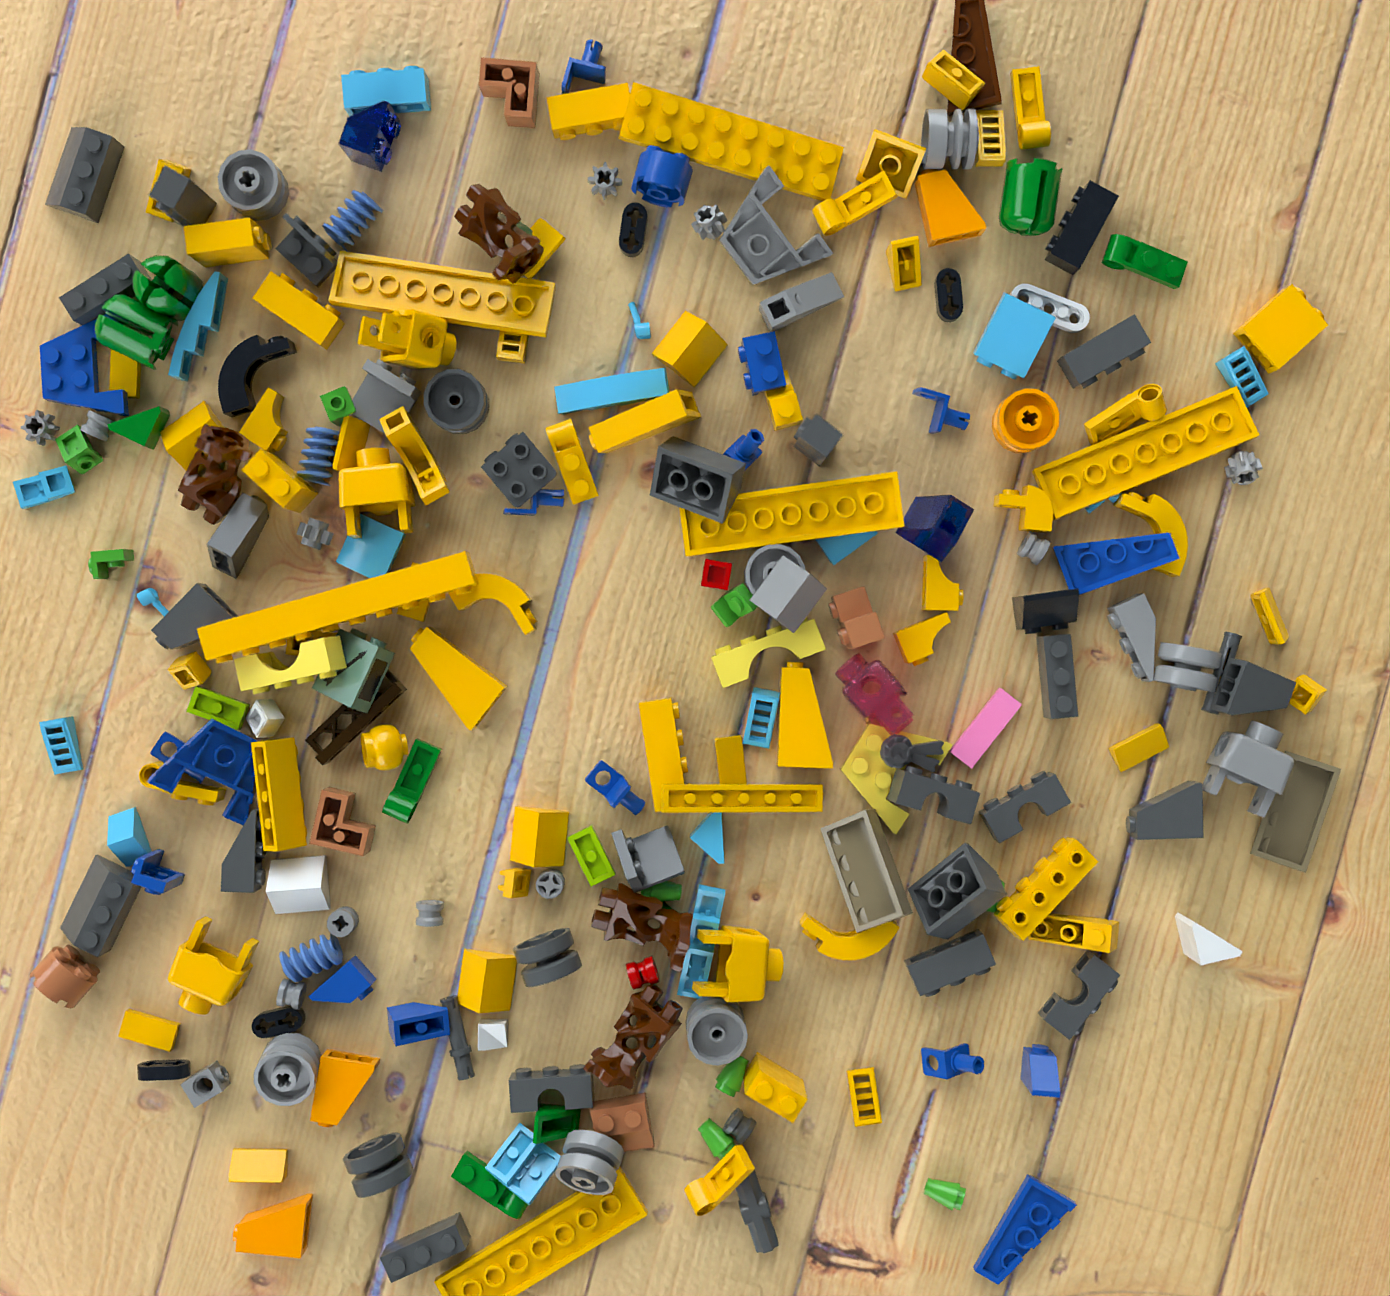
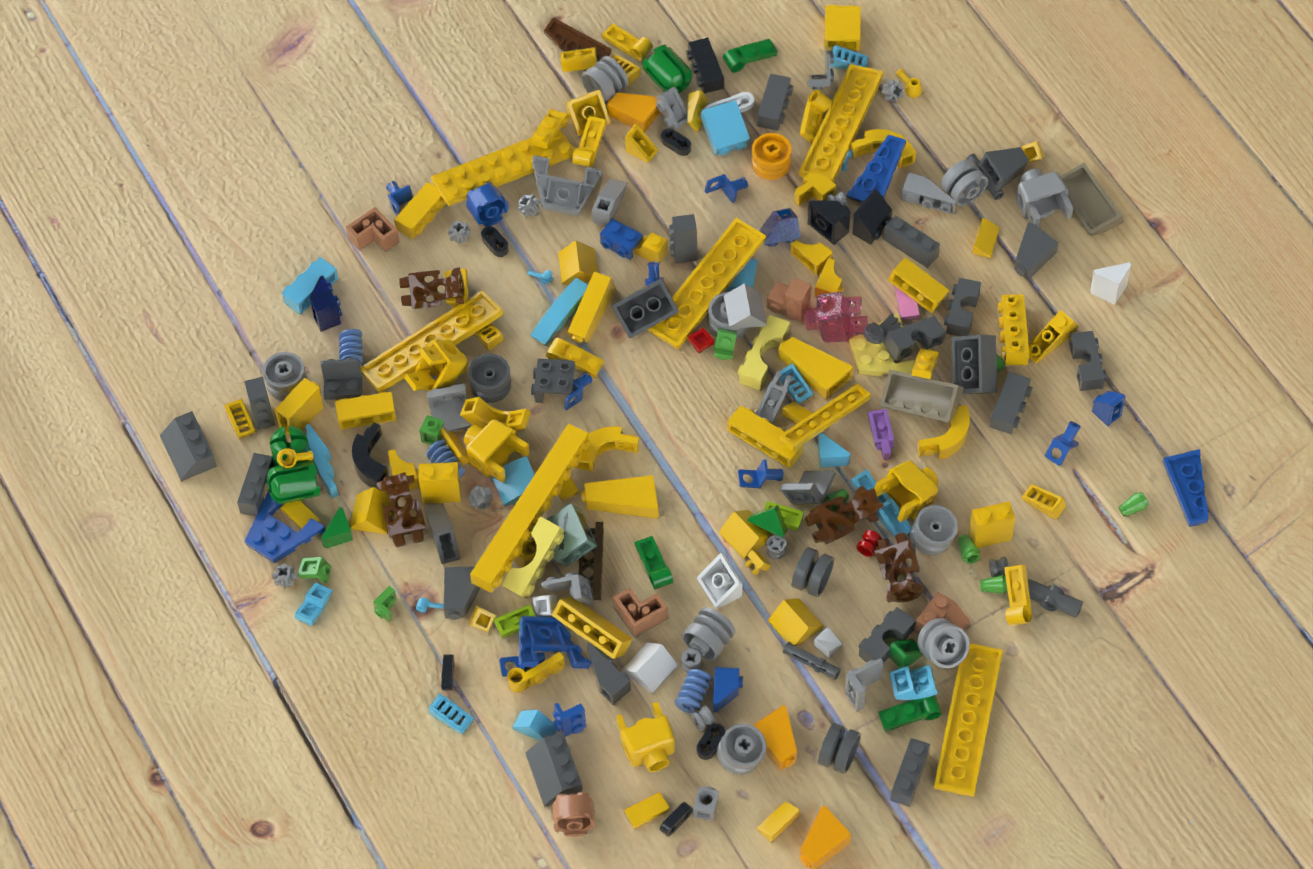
camera: 40 degrees left, 30 degrees down
(97, 425) = (313, 547): light grey wheel -> none
(99, 698) = (447, 672): none -> black beam
(133, 306) = (292, 457): none -> yellow bar
(301, 735) = (579, 586): none -> light grey bracket
(378, 919) = (708, 633): none -> light grey wheel
(383, 747) = (621, 558): yellow piece -> none
(417, 1022) = (782, 667): blue slope -> none
(429, 913) = (732, 613): light grey wheel -> none
(454, 868) = (720, 582): none -> white slope
(471, 1111) = (858, 680): none -> light grey bracket
(564, 855) = (770, 520): none -> green slope
(717, 718) = (773, 398): none -> light grey hinge
(788, 862) = (881, 432): none -> medium lavender hinge
(827, 142) = (549, 128): none -> yellow plate
(907, 841) = (925, 363): none -> yellow plate
(984, 252) = (672, 108): none -> light grey bracket
(999, 567) = (829, 219): none -> black slope
(1005, 739) = (918, 285): none -> yellow brick
(1016, 271) = (696, 103): none -> yellow slope
(1183, 379) = (819, 81): none -> bracket
(1264, 482) = (913, 86): none -> yellow bar
(1269, 616) = (977, 137): yellow slope -> none

